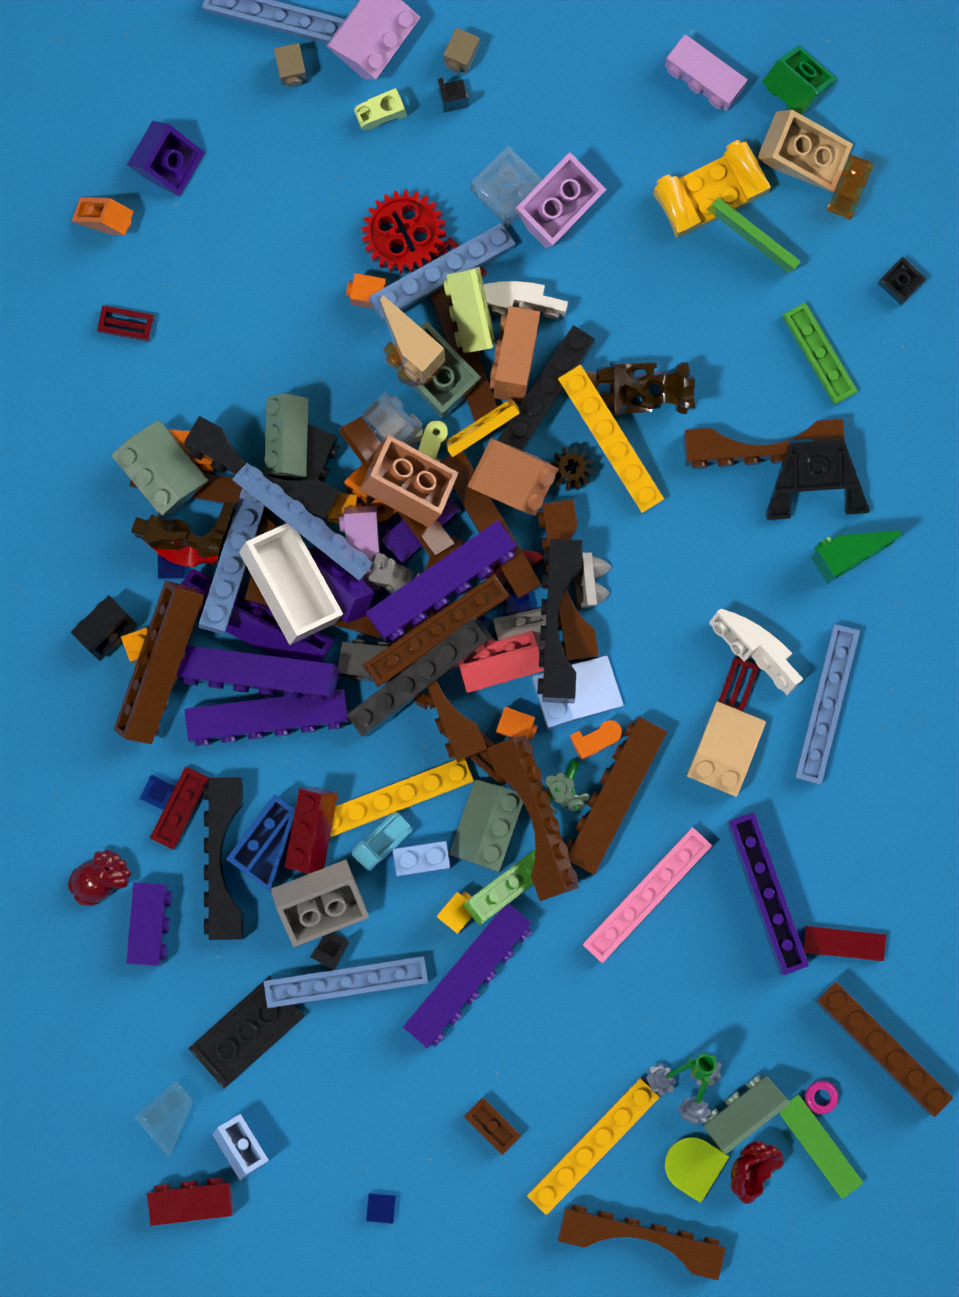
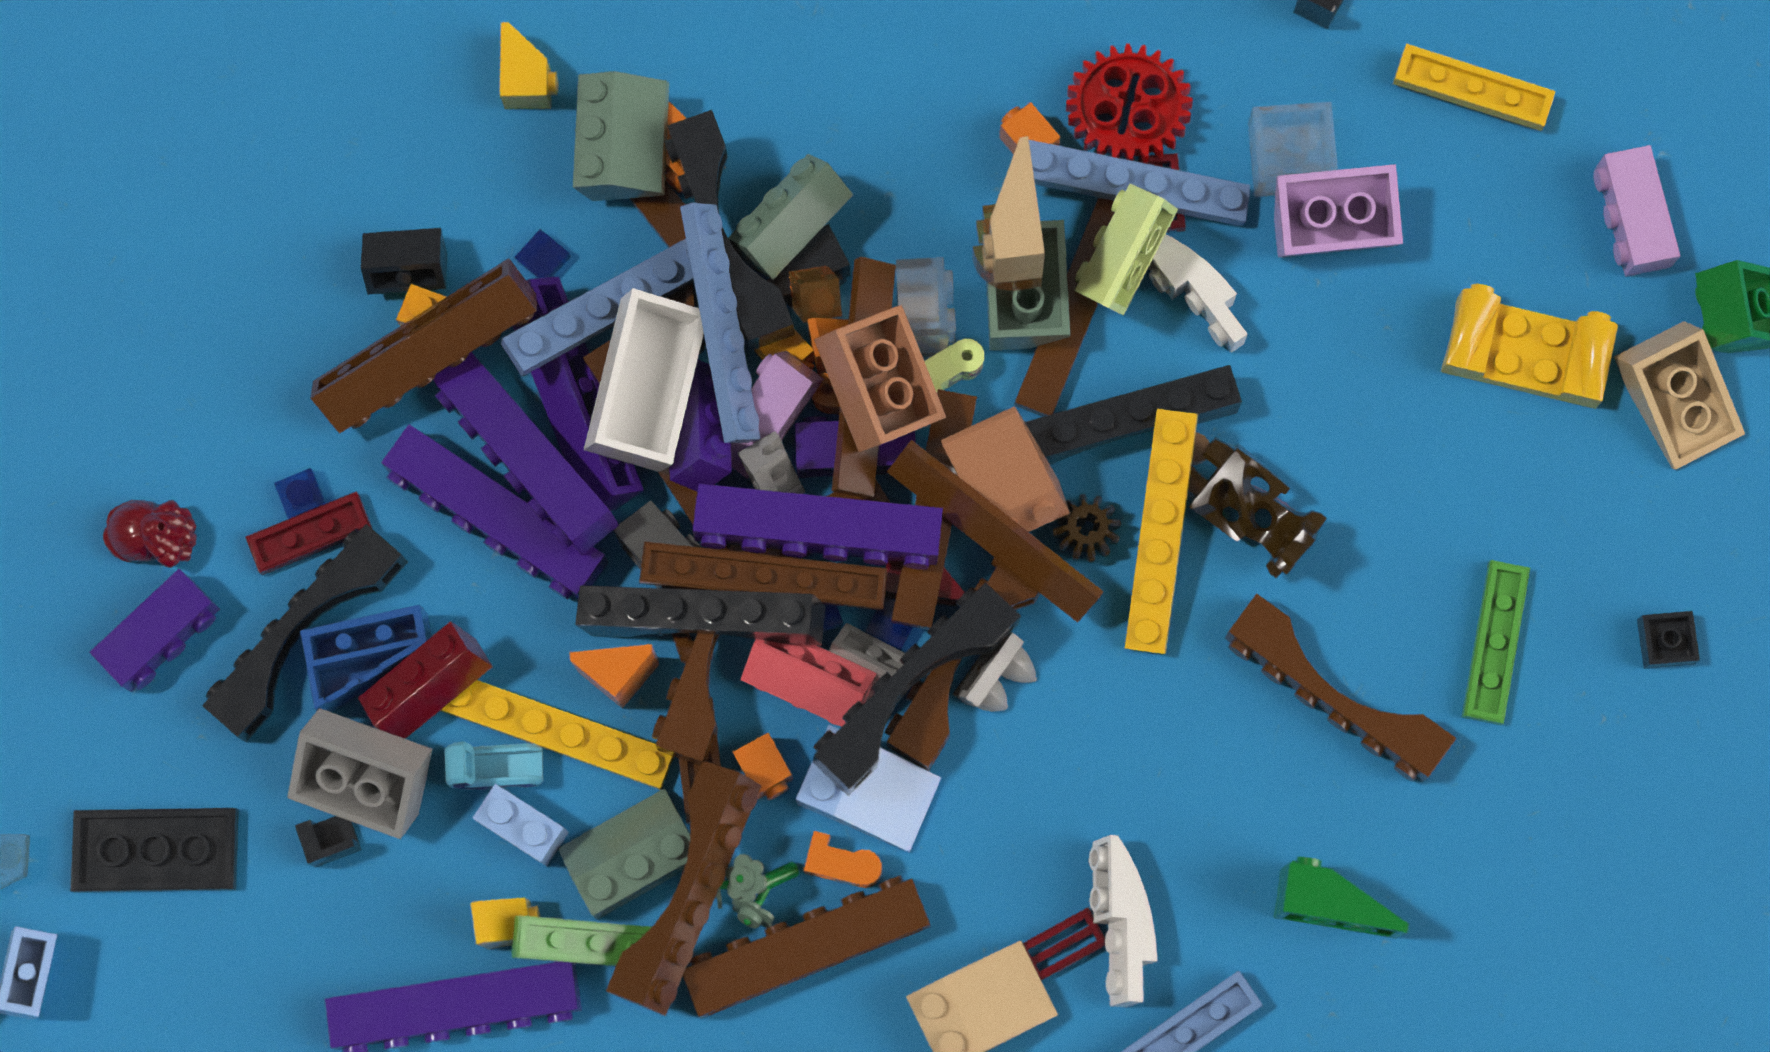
camera: 45 degrees right, 5 degrees down
(76, 477) = (524, 73): none -> yellow slope
(179, 544) = (566, 232): dark brown hips -> none
(334, 465) = (815, 293): none -> clear orange brick
(345, 982) = (310, 890): medium blue plate -> none
(402, 742) = (617, 670): none -> orange slope
(482, 427) = (1022, 391): yellow tile -> none
(514, 354) = (1134, 341): nougat brick -> none
(531, 509) = (995, 531): none -> reddish brown tile
(570, 76) = (1474, 87): none -> yellow plate
(753, 235) = (1533, 438): bright green tile -> none
(816, 466) = (1375, 767): black wing -> none
(850, 187) = (1698, 478): clear orange brick -> none

